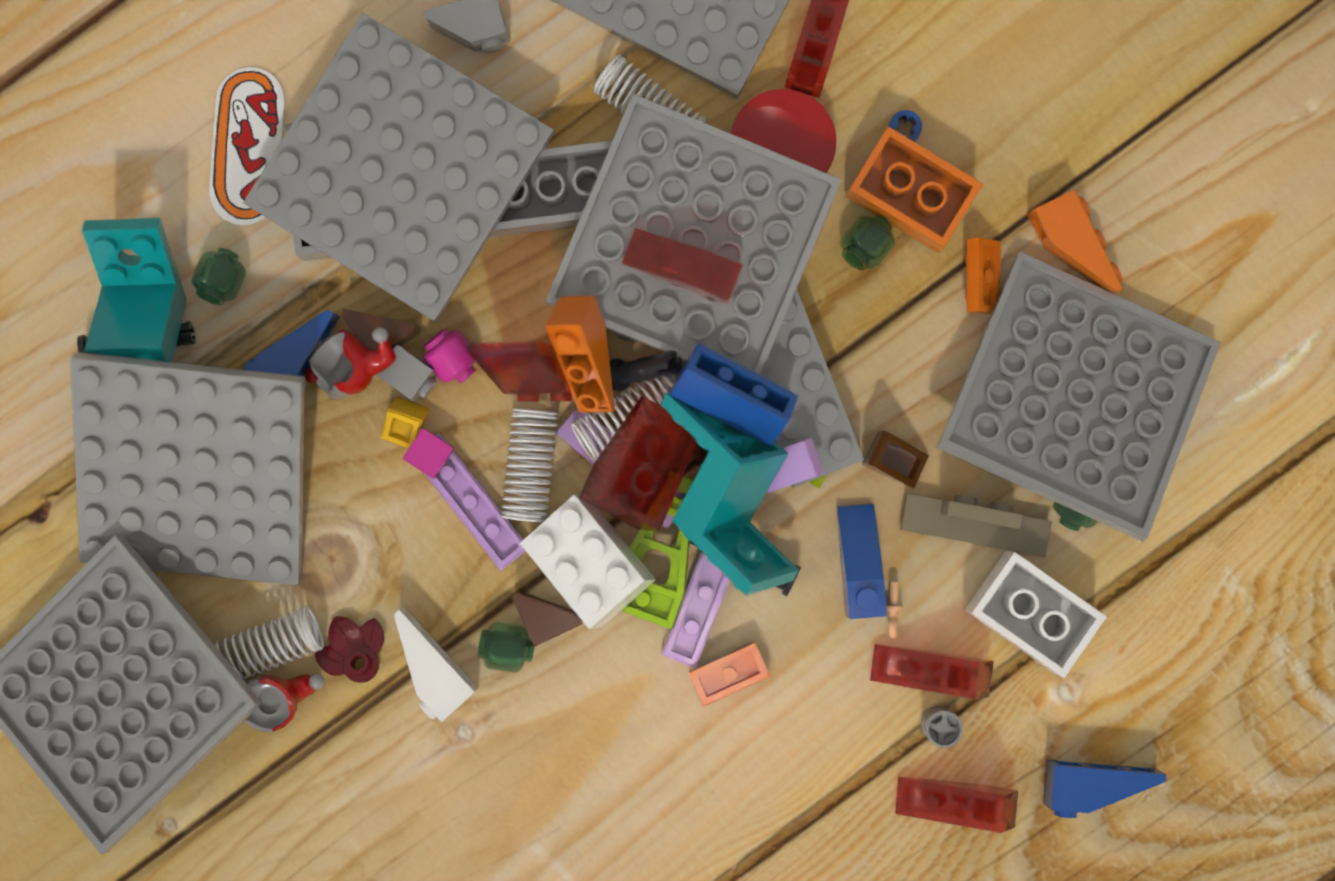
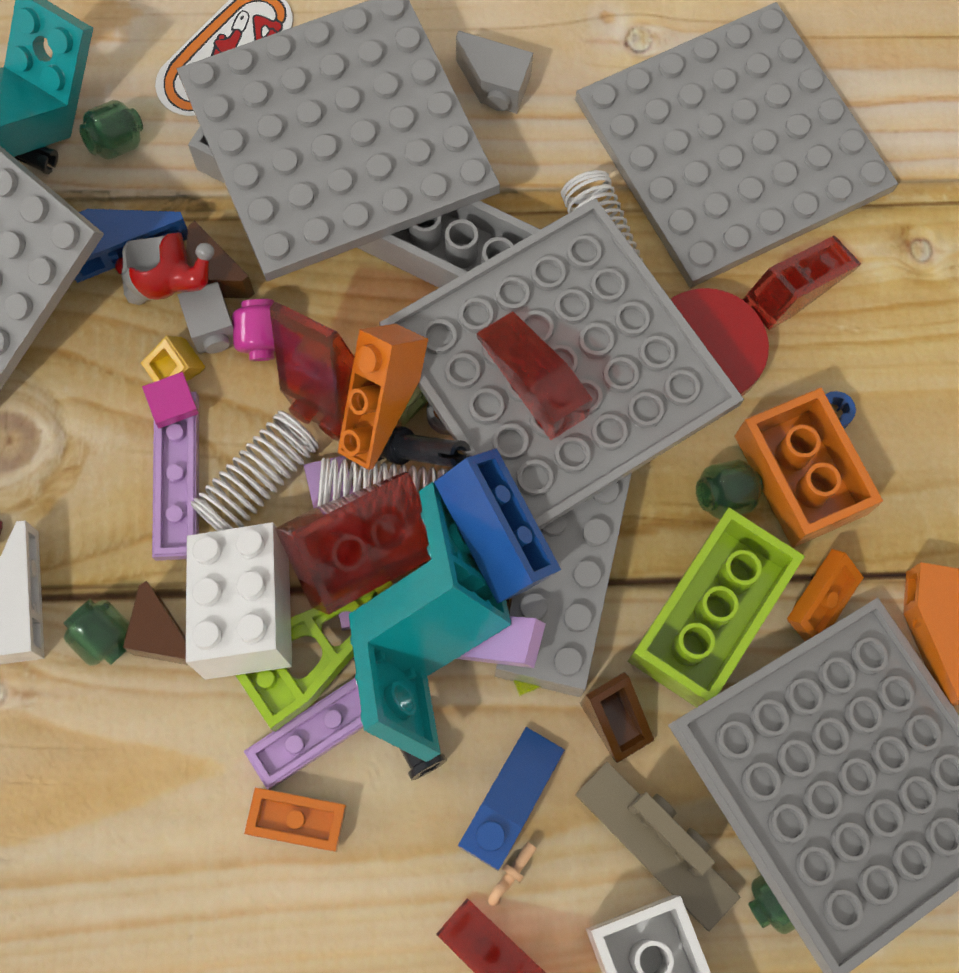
camera: 30 degrees right, 15 degrees down
(914, 338) = (716, 609): none -> lime brick

